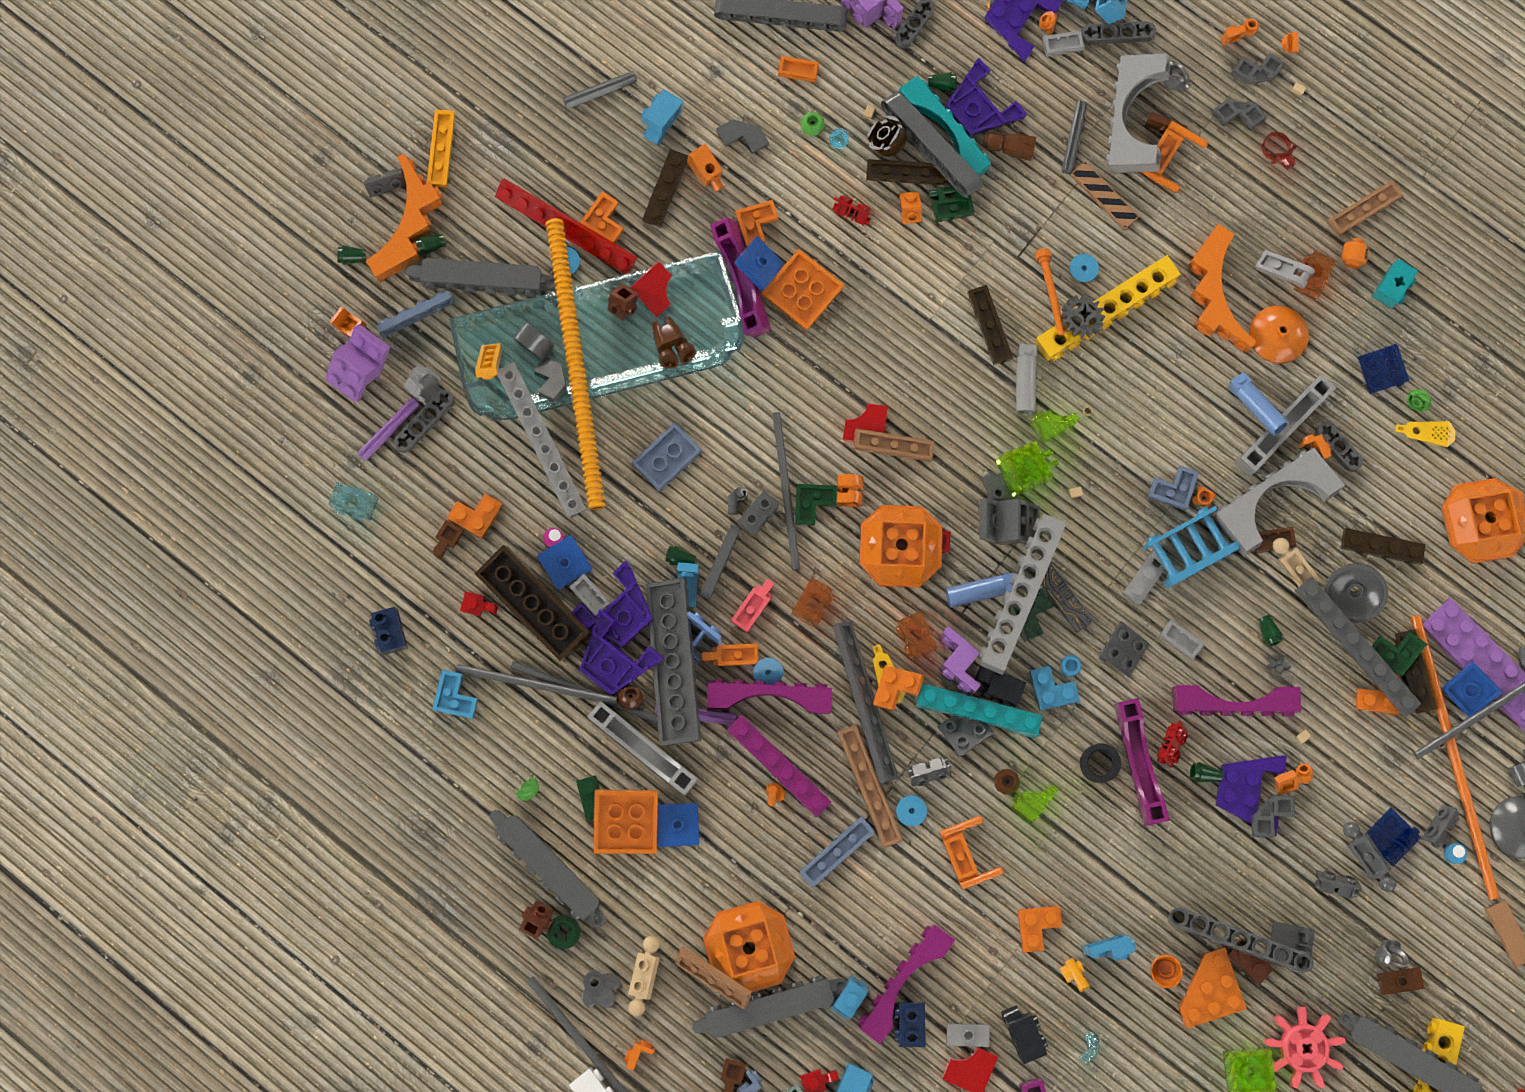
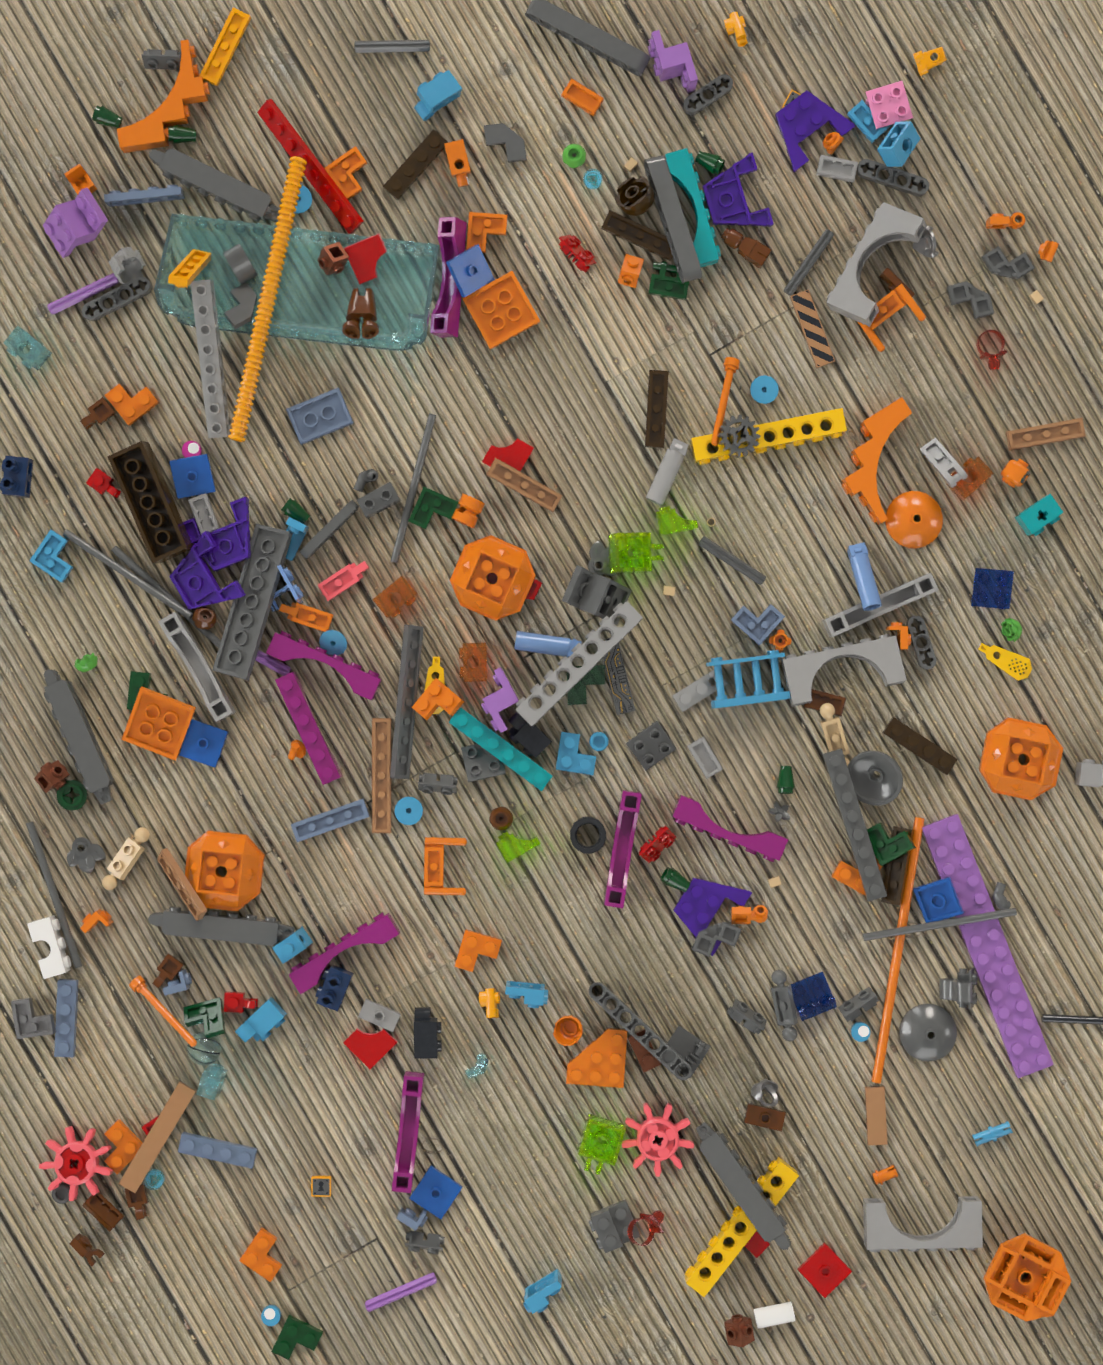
camera: 25 degrees right, 10 degrees up
(1124, 439) = (732, 560): none -> dark grey axle

